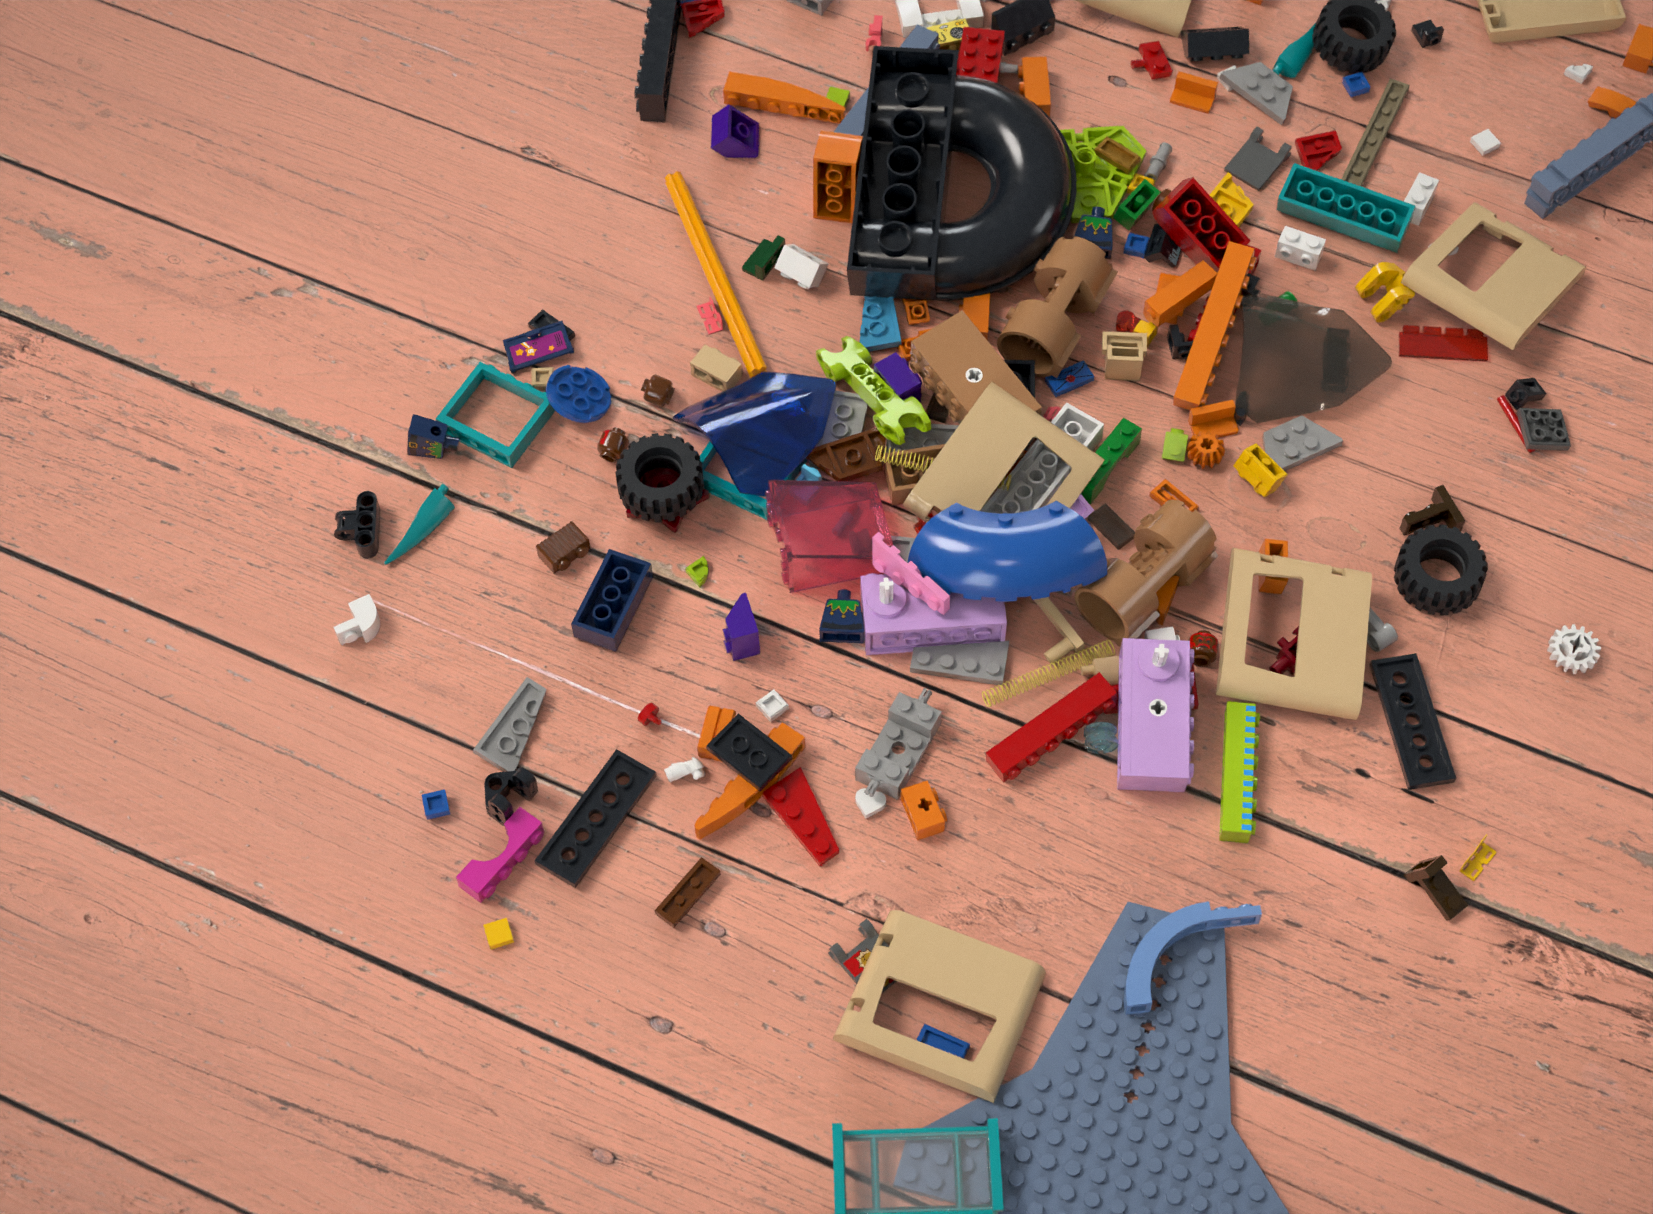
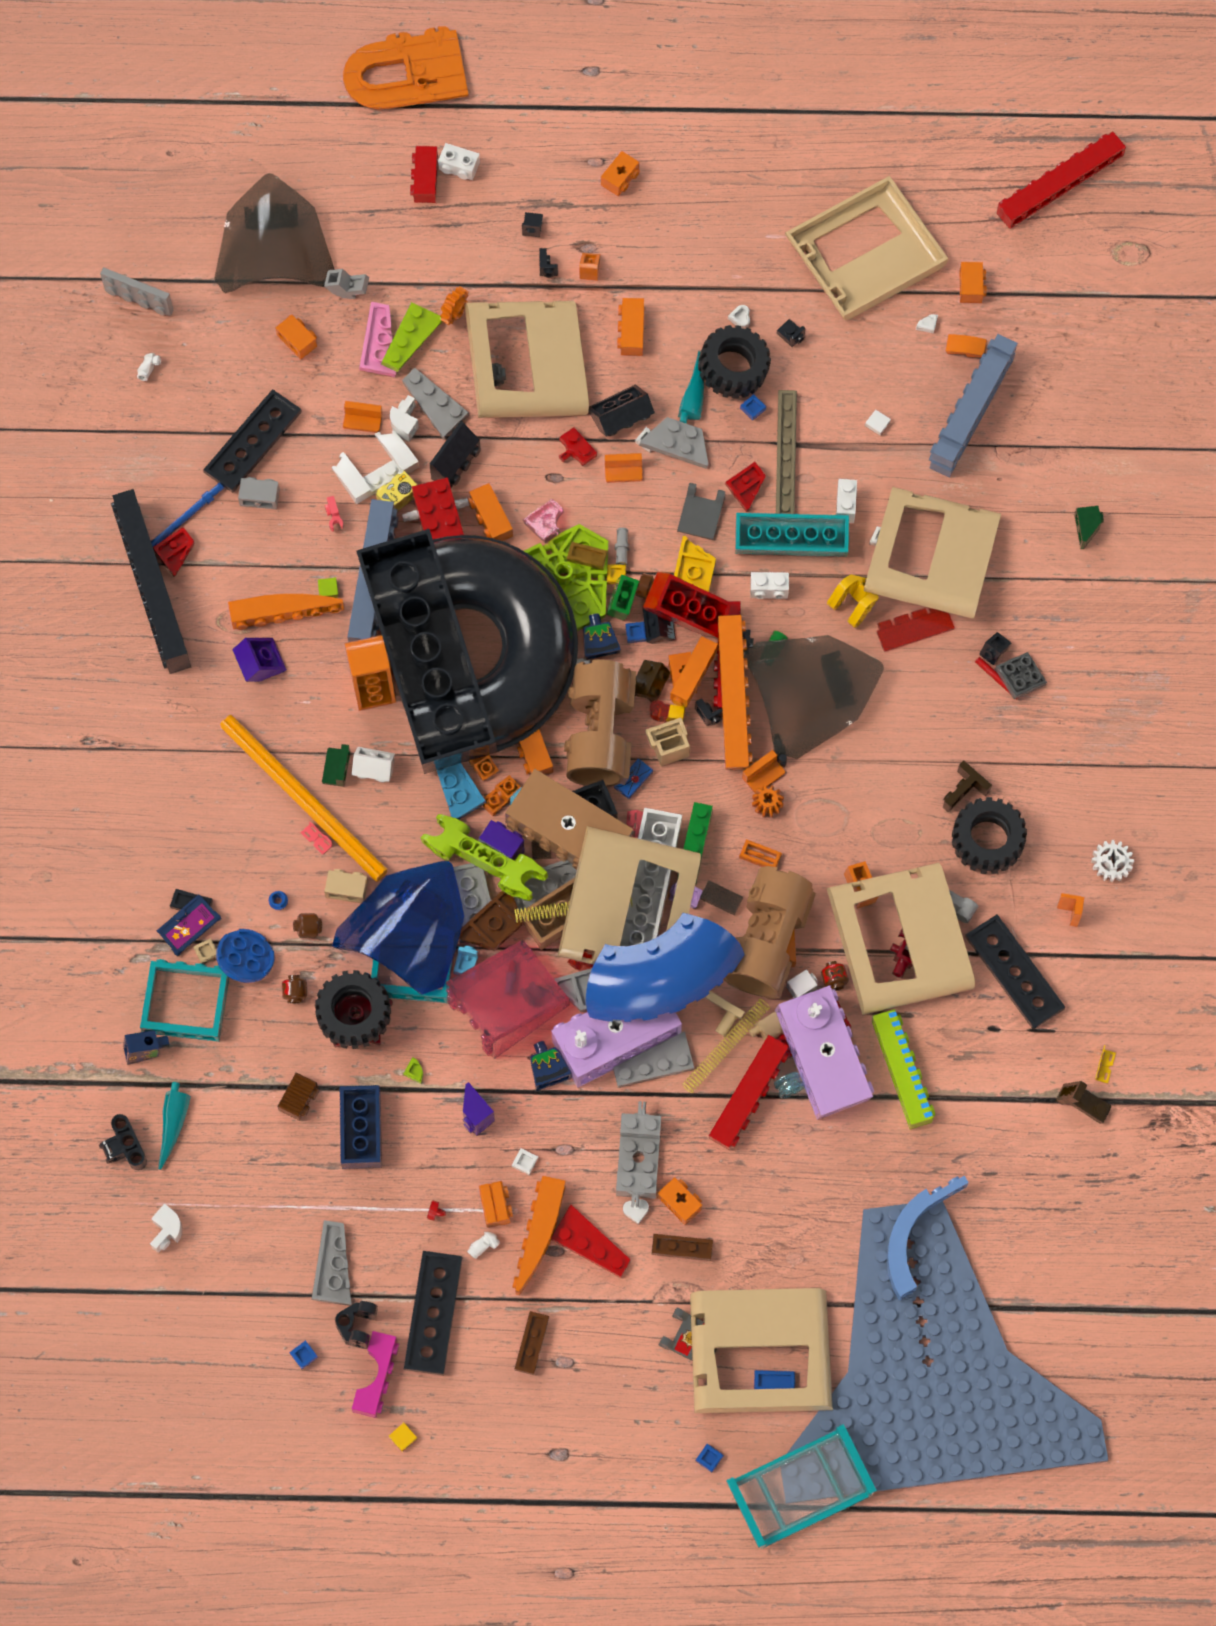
camera: 25 degrees left, 10 degrees up
(640, 352) = (278, 895): none -> blue plate
(749, 752) = (529, 1212): black tile -> none
(828, 1098) = (709, 1458): none -> blue tile
(903, 859) = (682, 1247): none -> reddish brown plate
(908, 575) = (592, 1018): bright pink wing -> none
(1088, 112) = (544, 520): none -> clear pink tile
(1131, 292) = (651, 680): none -> dark brown bracket
(1175, 445) = (742, 806): lime bracket -> none
(1259, 470) = (818, 803): yellow brick -> none
(1298, 442) = (834, 765): light grey wing -> none
(1507, 672) = (1074, 904): none -> orange panel

